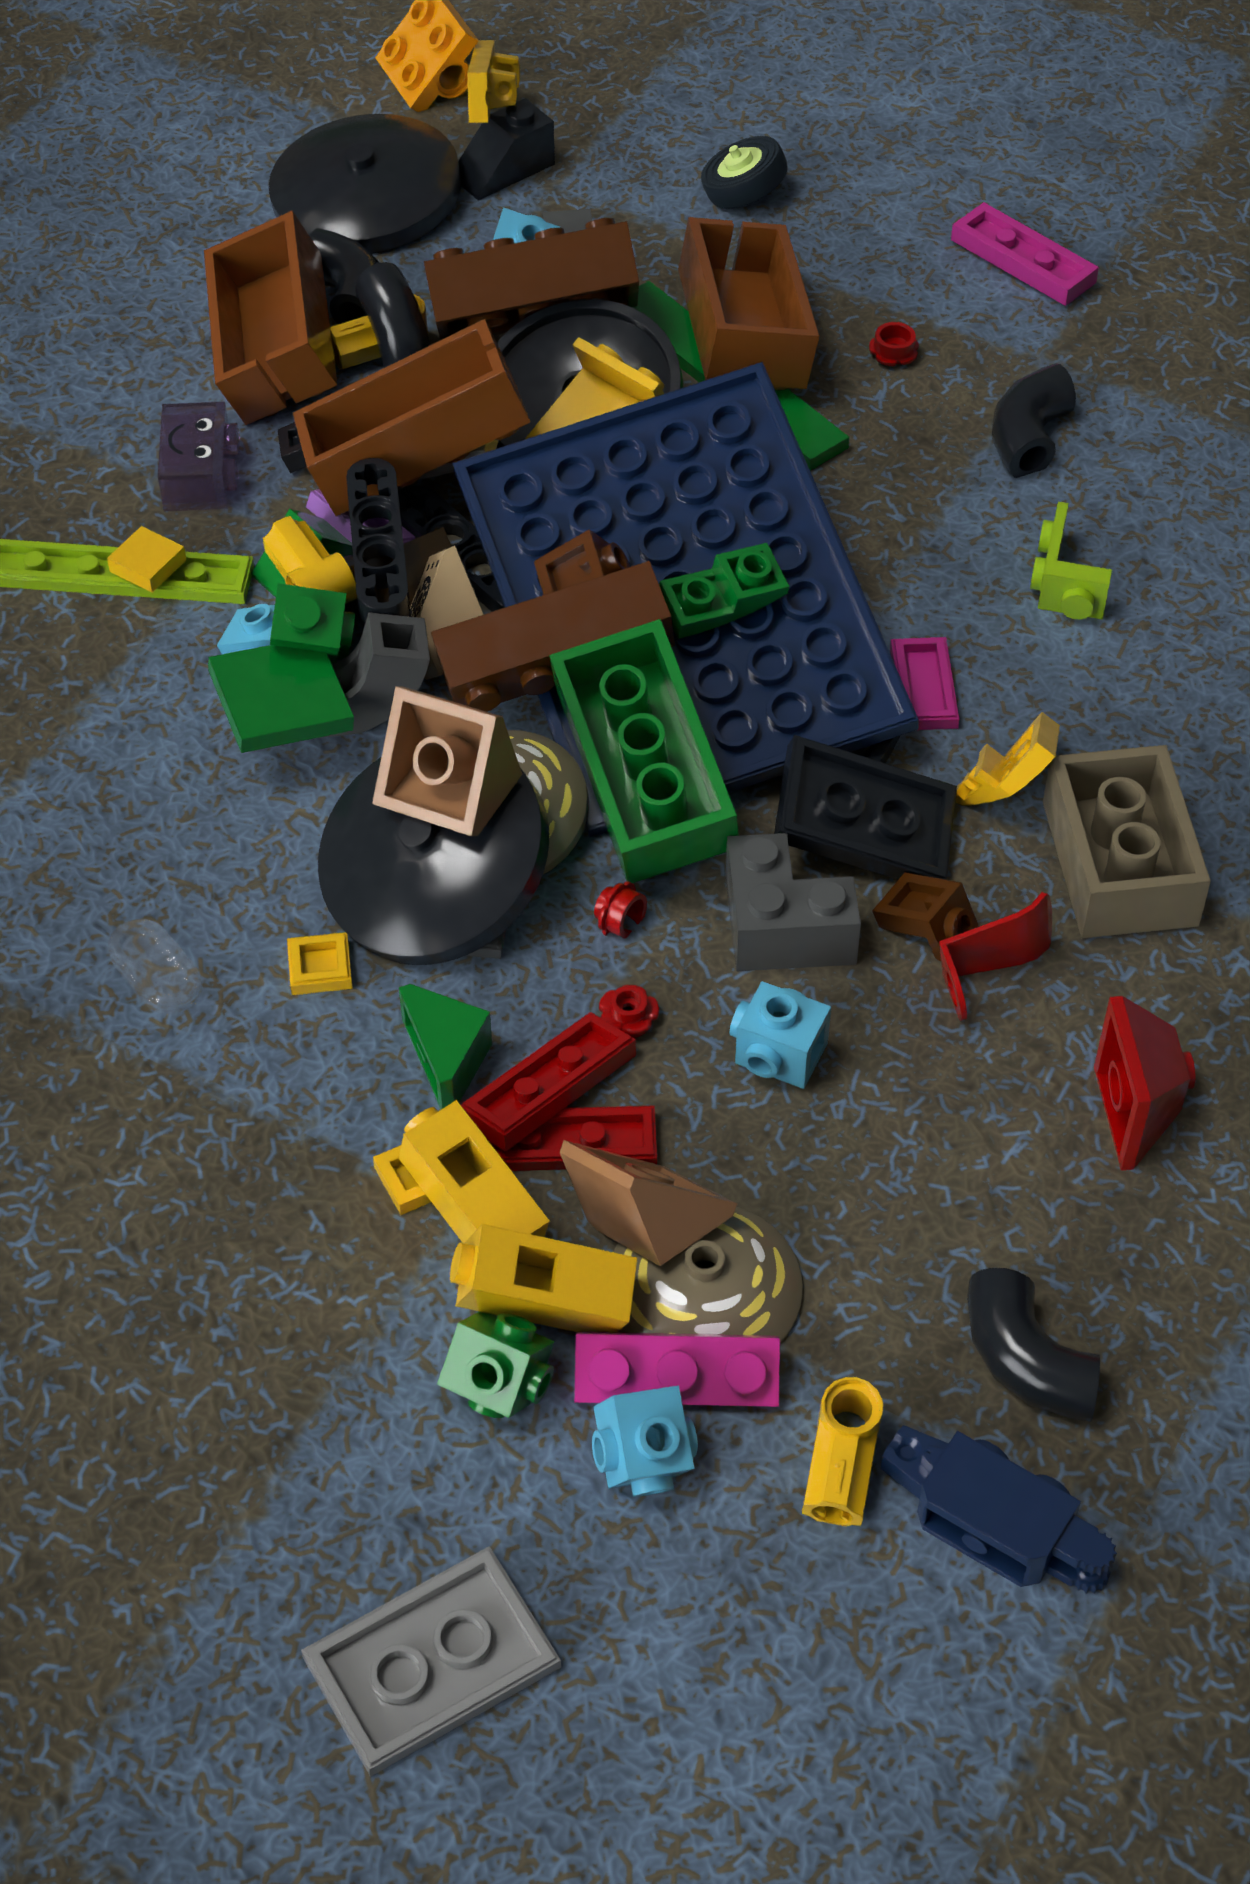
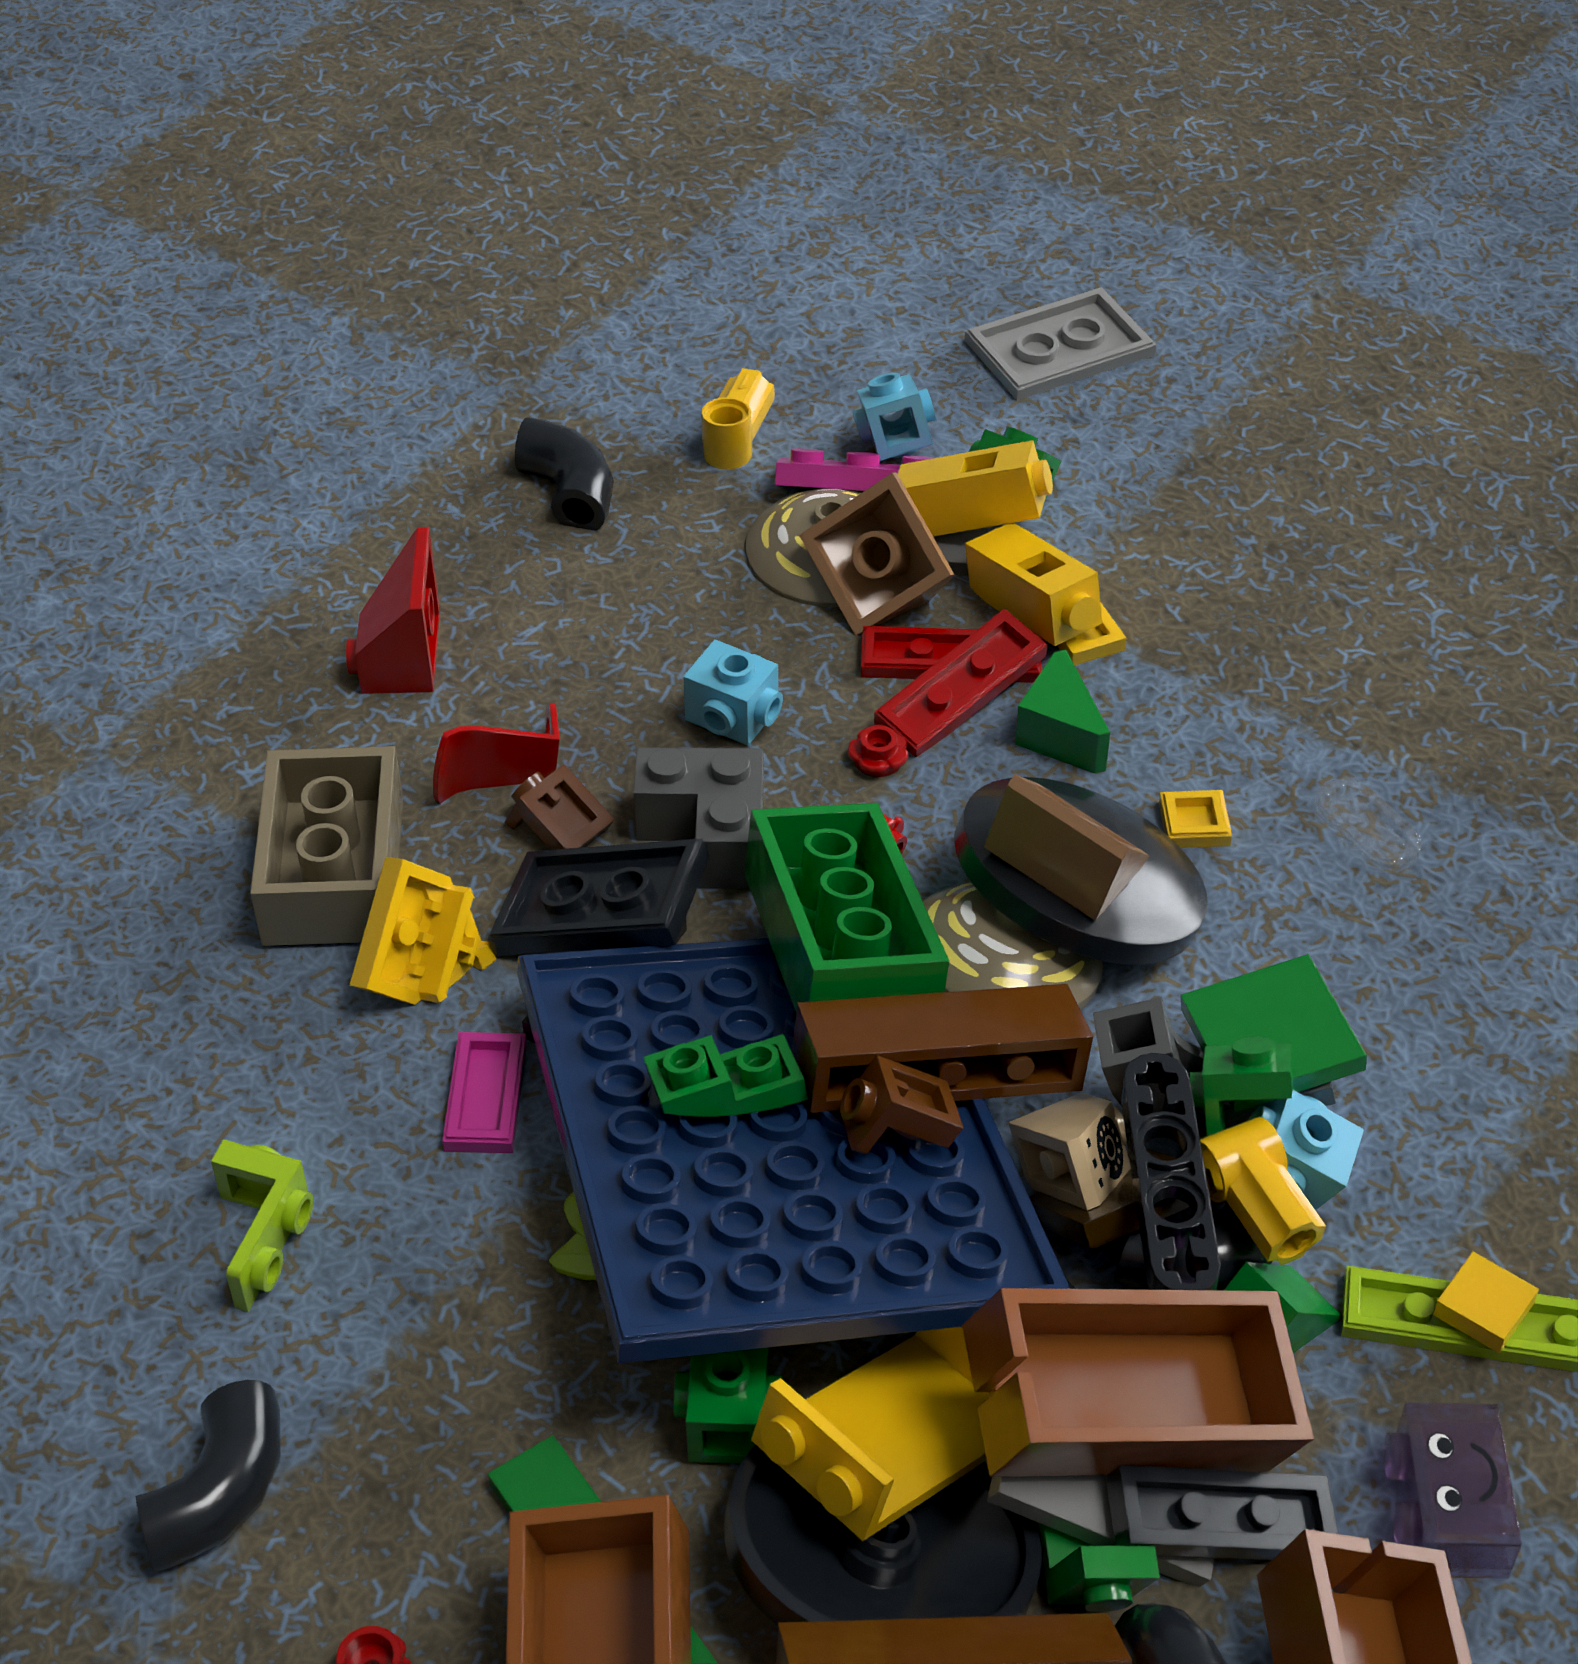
camera: 175 degrees left, 5 degrees down
(999, 1511) = (624, 377): dark blue hinge -> none

